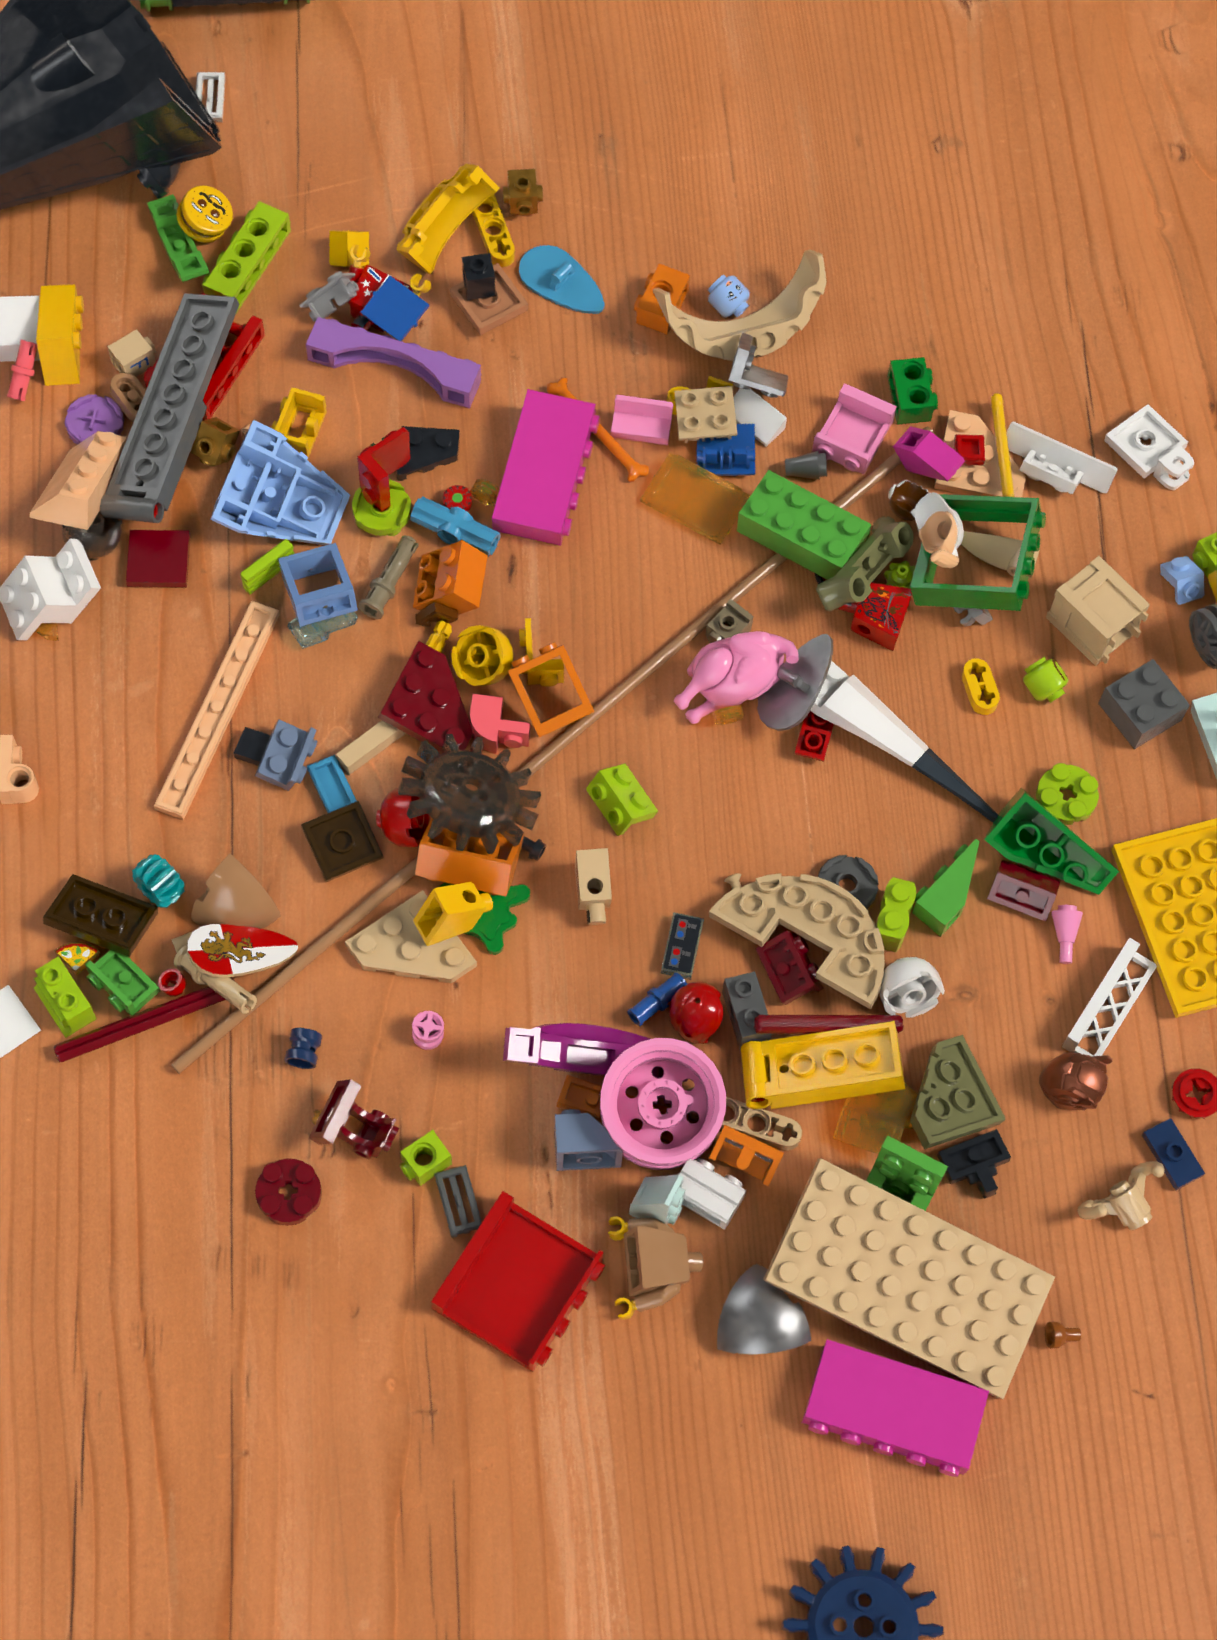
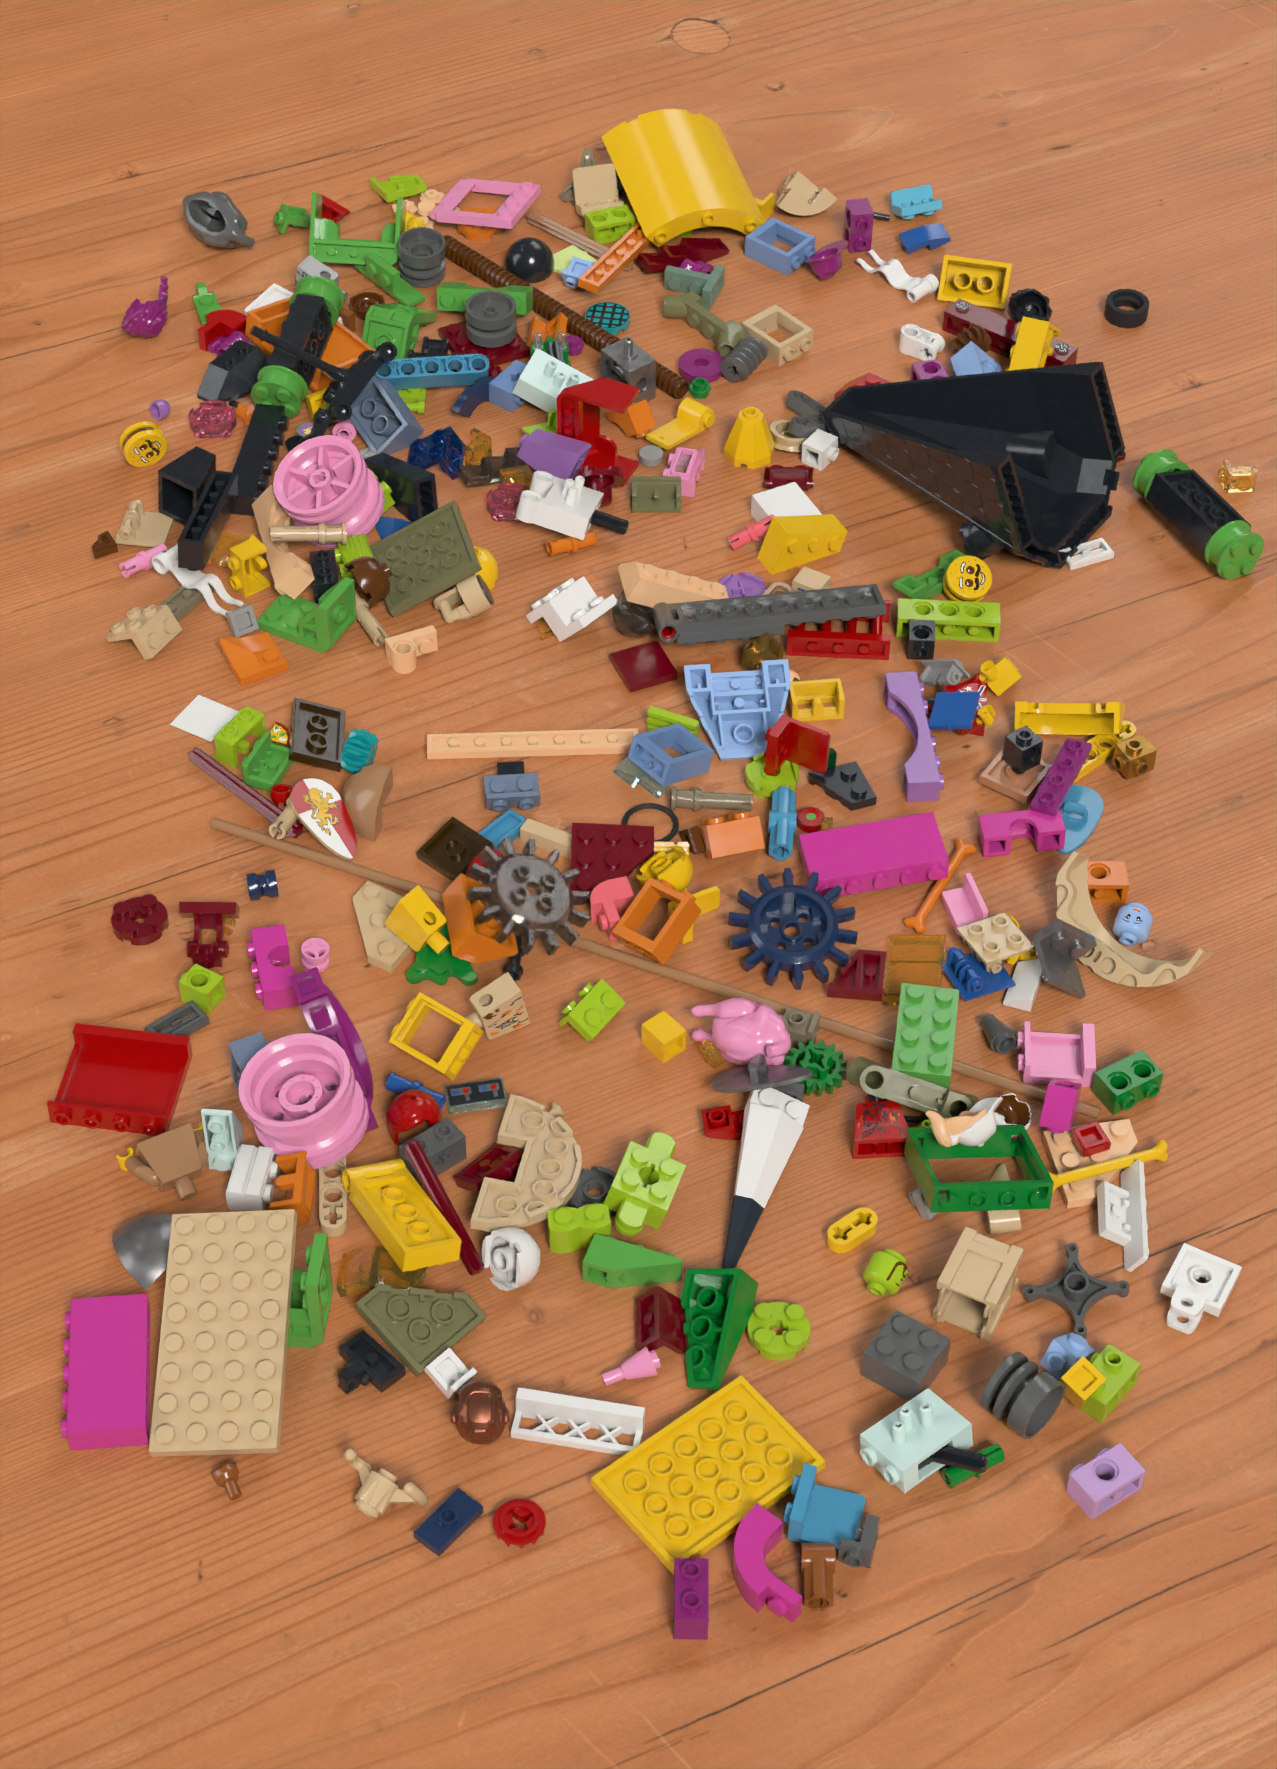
camera: 70 degrees right, 20 degrees down
(261, 283) = (921, 639): none -> black brick
(370, 627) = (655, 806): none -> black tyre
(454, 1085) = (270, 950): none -> dark pink arch
(529, 265) = (1060, 777): none -> magenta bracket
(576, 308) = (999, 829): none -> dark pink arch
(612, 552) = (786, 906): none -> dark blue gear
(633, 937) = (459, 1048): none -> yellow window
(687, 545) = (861, 977): none -> dark red wing
(689, 746) = (663, 1036): none -> yellow panel
(787, 621) = (821, 1062): none -> green gear
(862, 847) = (644, 1184): none -> lime brick
(1019, 1090) = (449, 1373): none -> white bracket
(1121, 538) = (1076, 1290): none -> dark grey piece

